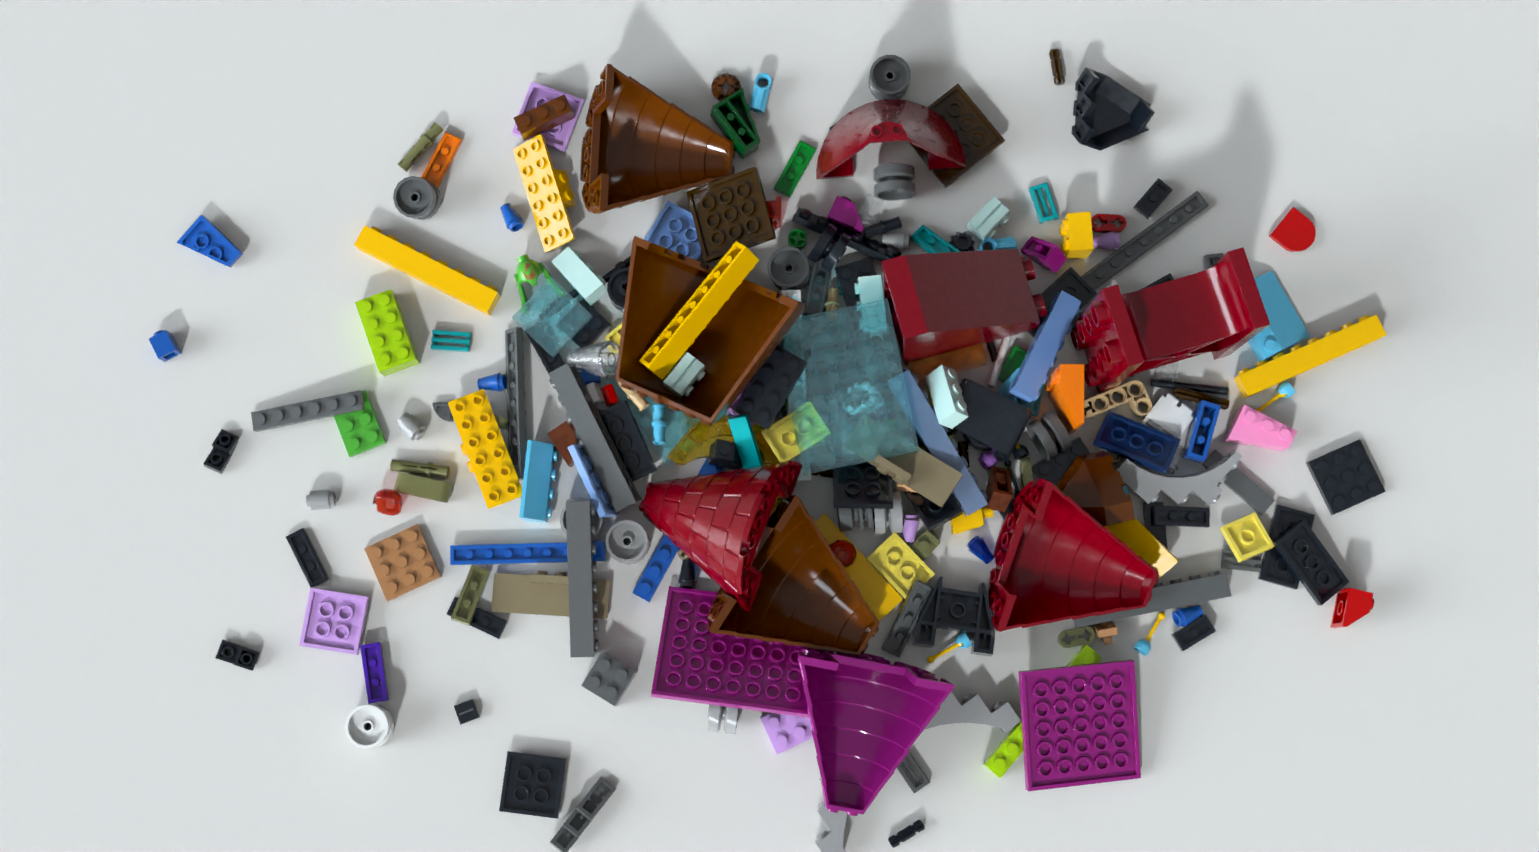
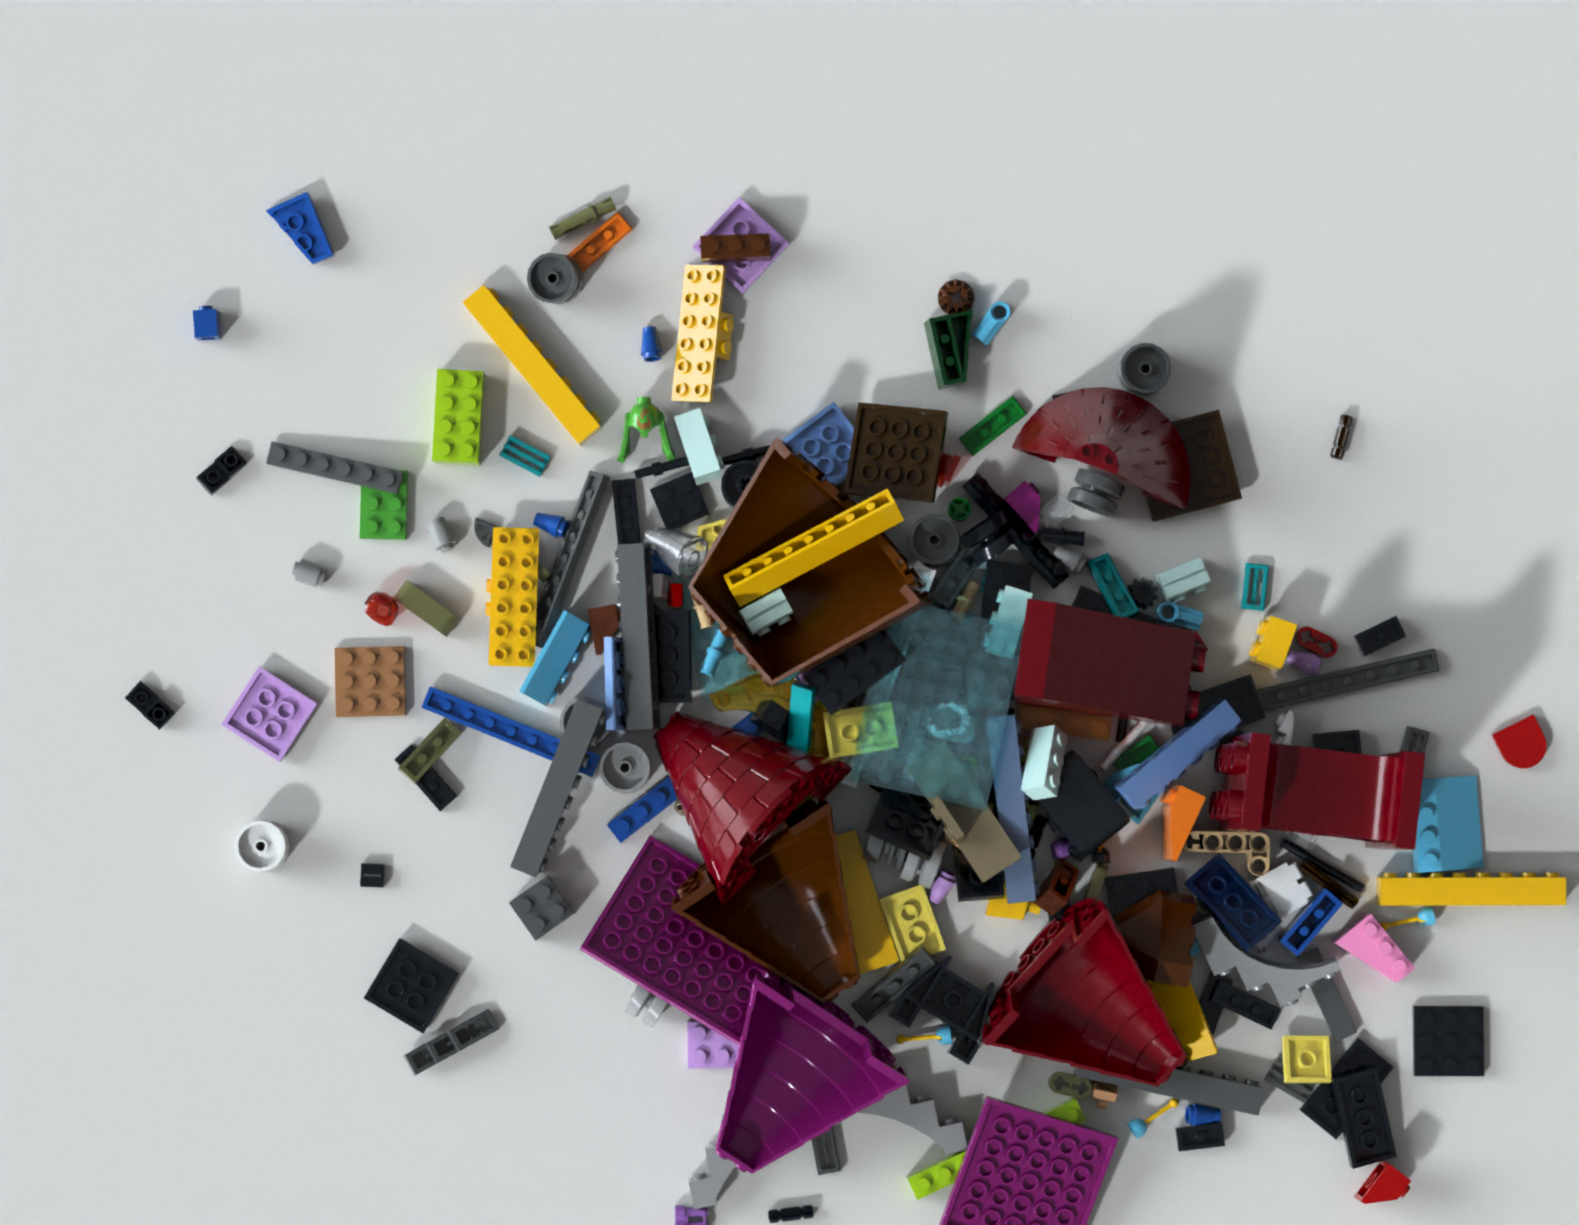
camera: 20 degrees right, 5 degrees up
(307, 558) = (268, 630): black tile -> none
(374, 672) = (290, 789): dark purple plate -> none
(420, 468) = (453, 599): olive pin -> none
(541, 594) = (506, 783): dark tan bracket -> none
(552, 317) = (648, 480): clear light blue plate -> none
(644, 146) = (831, 335): reddish brown cone -> none
(687, 574) = (675, 832): black cone -> none
(844, 552) = (856, 883): clear red hair -> none
(925, 544) = (950, 912): olive bracket -> none
(980, 549) = (1007, 942): clear blue cone -> none
(1008, 465) = (1079, 885): black hinge -> none
(1044, 254) = (1228, 646): magenta slope -> none
(1049, 435) = (1141, 852): dark grey wheel -> none
(1107, 111) = (1373, 515): black panel -> none

